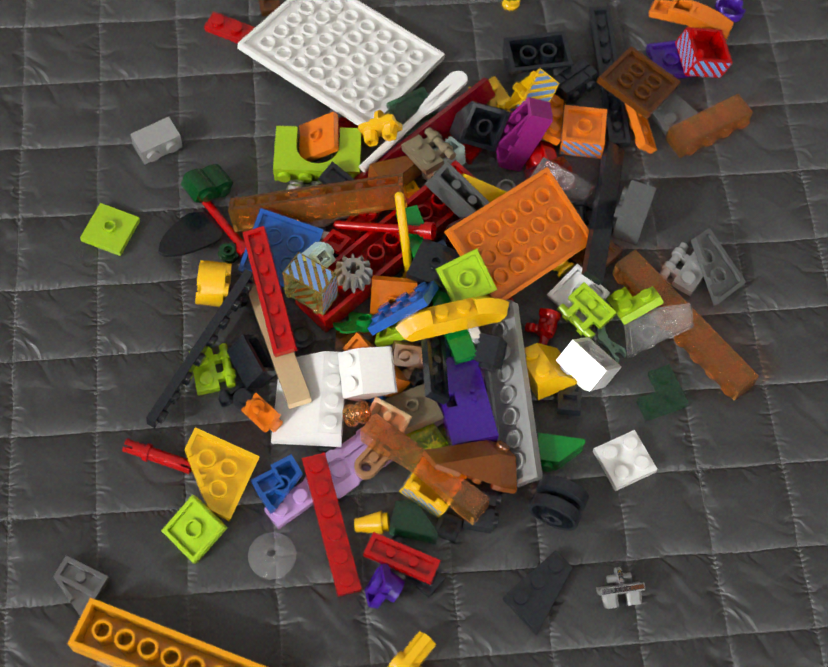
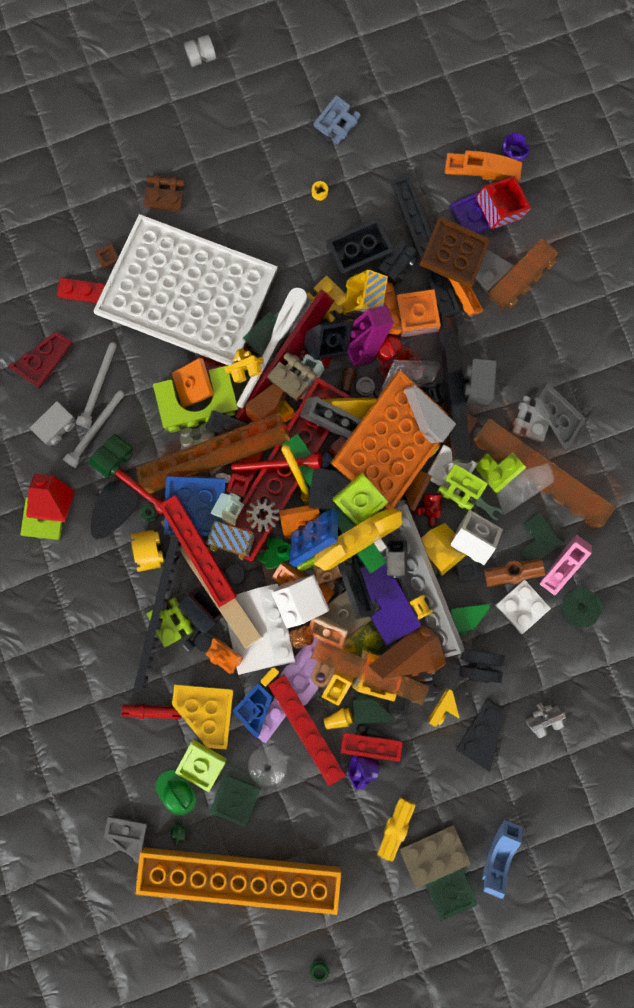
camera: 15 degrees left, 20 degrees up
(125, 205) = (48, 498): none -> red slope
(140, 599) = (178, 834): none -> dark green plate
(154, 556) = (175, 793): none -> green piece
(164, 179) = (73, 457): none -> light grey piece
(166, 81) = (42, 360): none -> dark red wing
(191, 145) = (84, 419): none -> light grey piece
(221, 580) = (235, 800): none -> clear green plate
(305, 451) = (269, 676): none -> yellow tile
(384, 483) = (337, 687): none -> yellow slope
(491, 174) = (348, 379): none -> reddish brown pin
(503, 540) = (446, 703): none -> yellow slope
(508, 423) = (415, 603): none -> yellow bush
(533, 298) = (416, 490): none -> reddish brown slope
(567, 221) = (429, 416): none -> light grey slope
(623, 416) = (526, 570): none -> dark orange piece
(686, 426) = (566, 564): none -> bright pink slope
(703, 469) = (590, 615): none -> clear green plate

